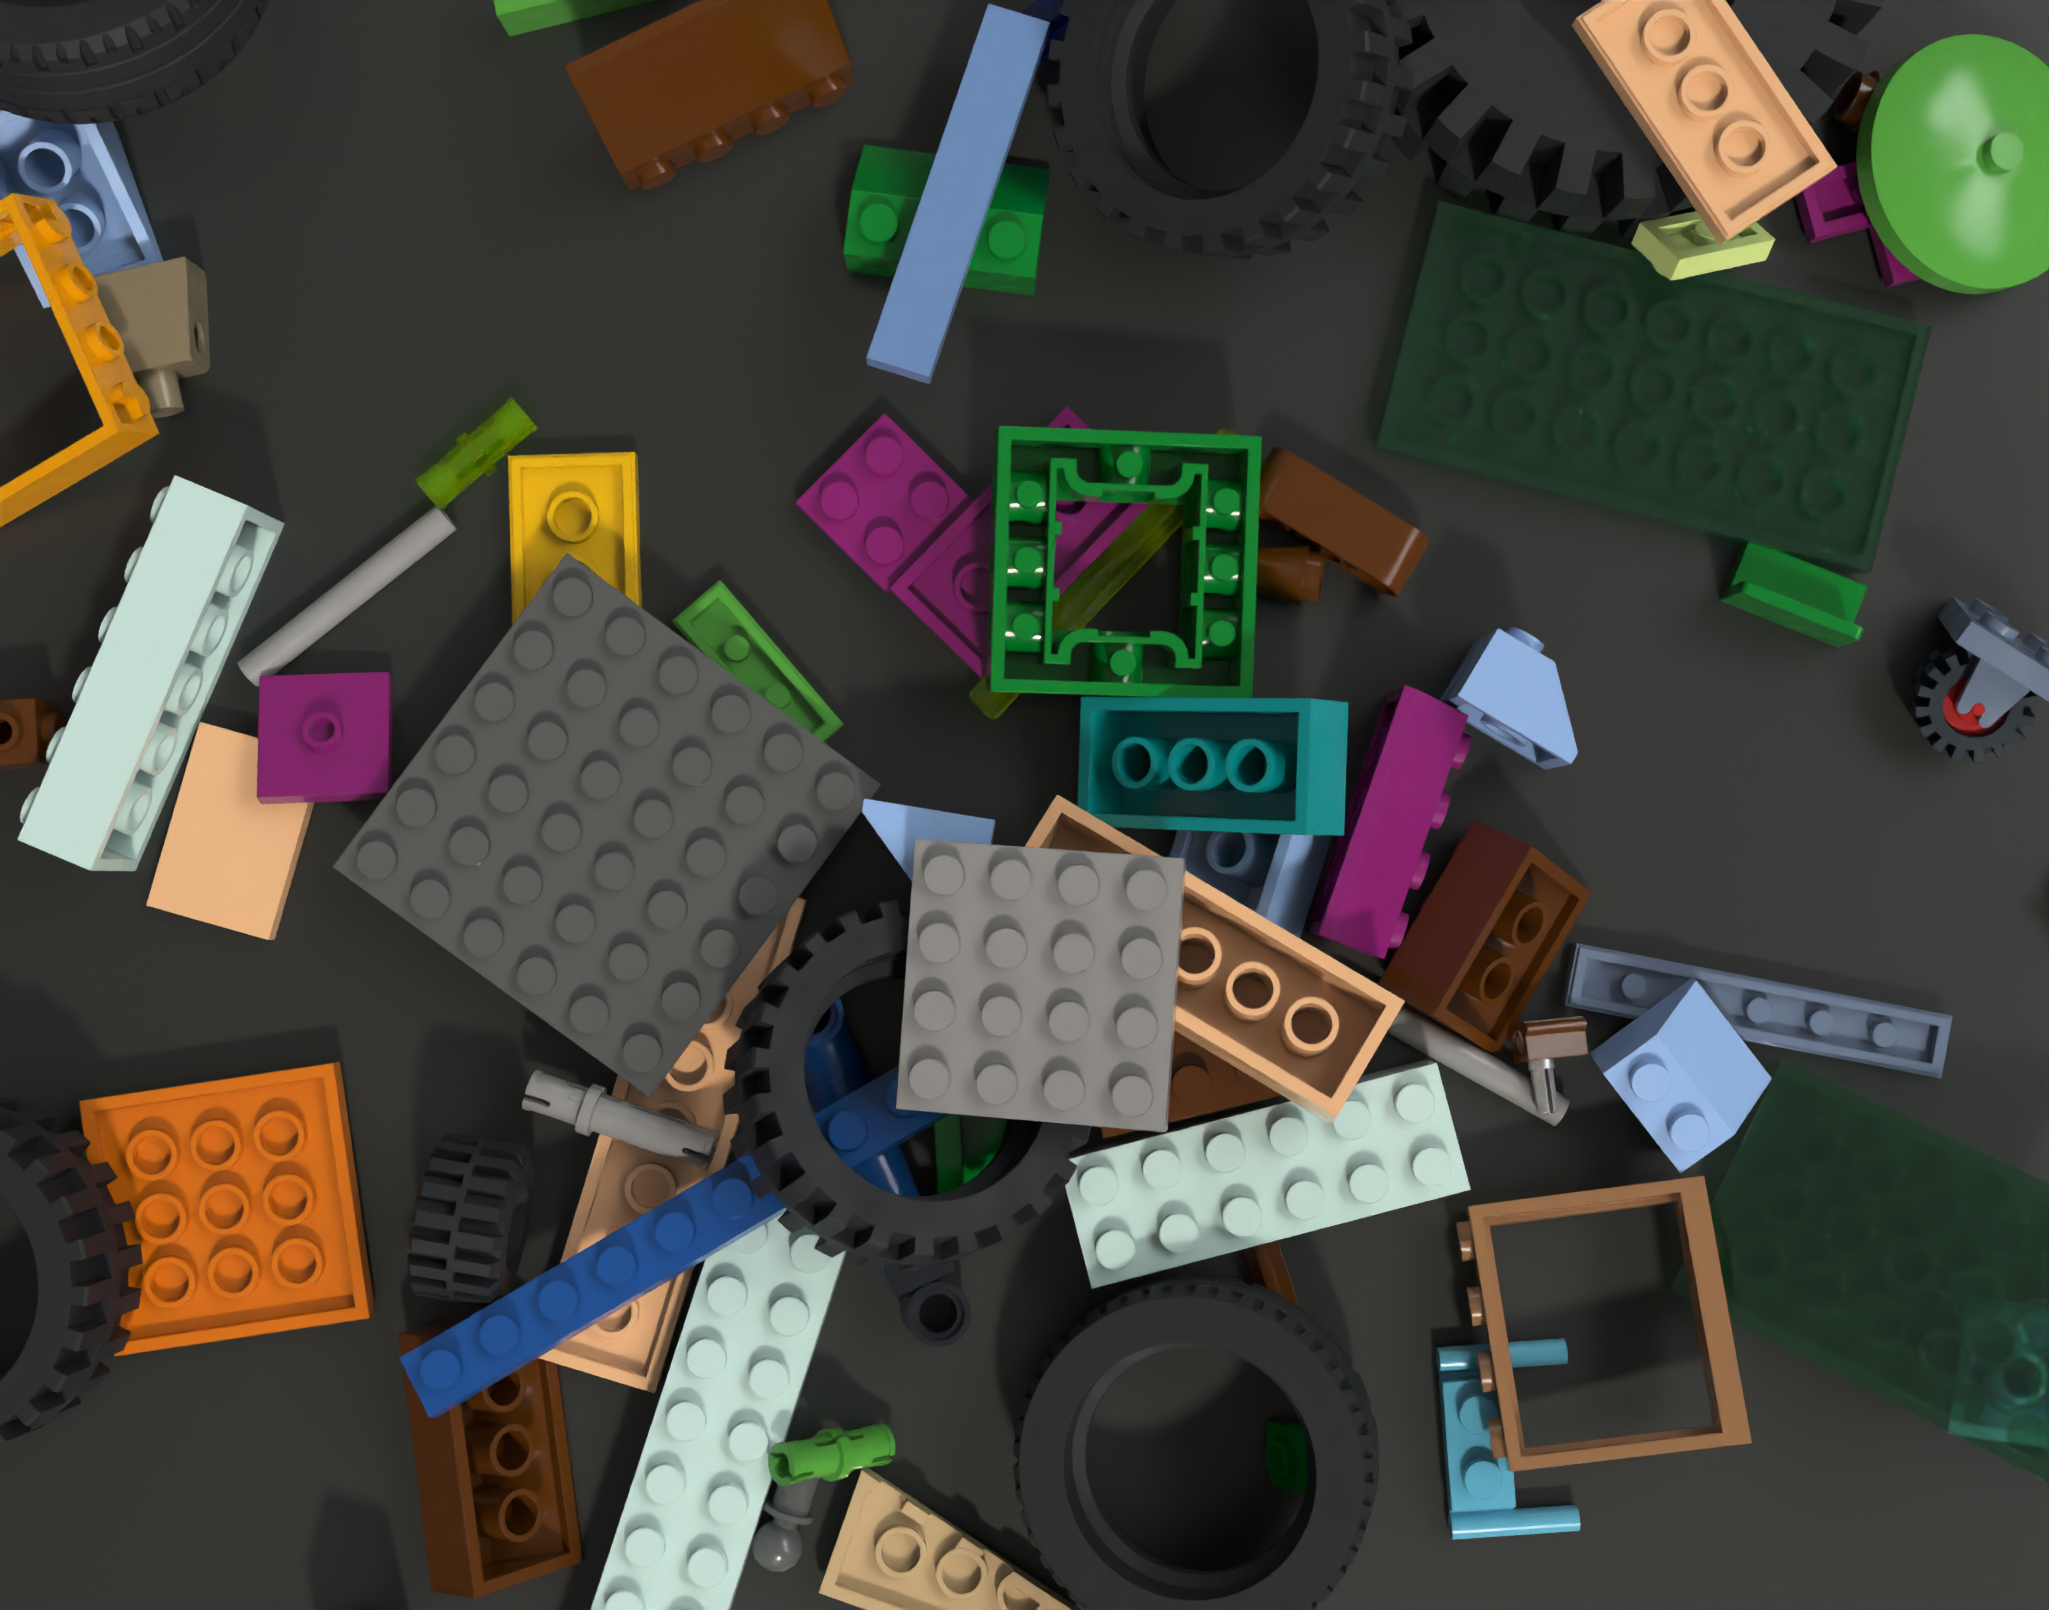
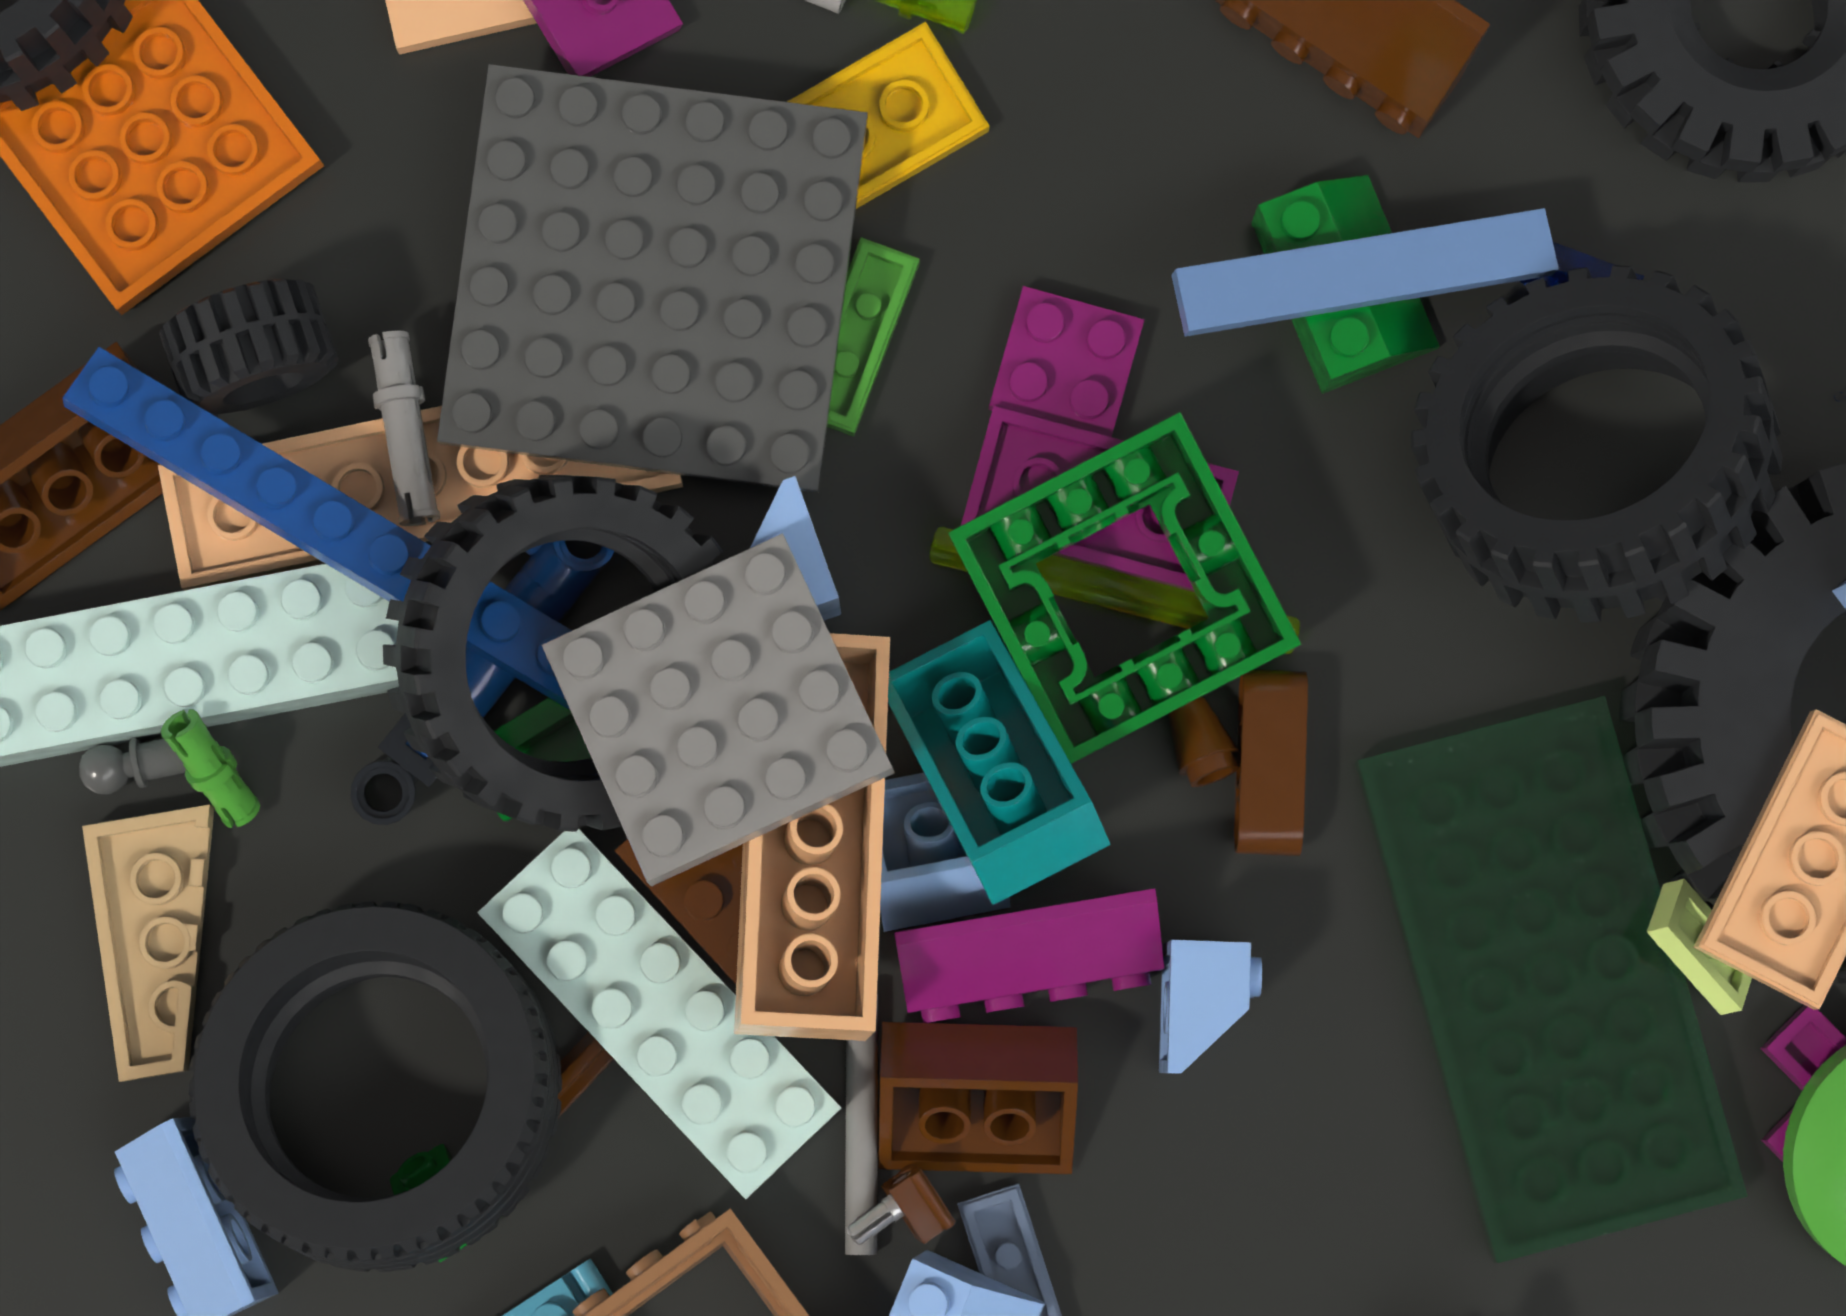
camera: 60 degrees right, 5 degrees down
(1795, 594) = (1440, 1209): green panel -> none

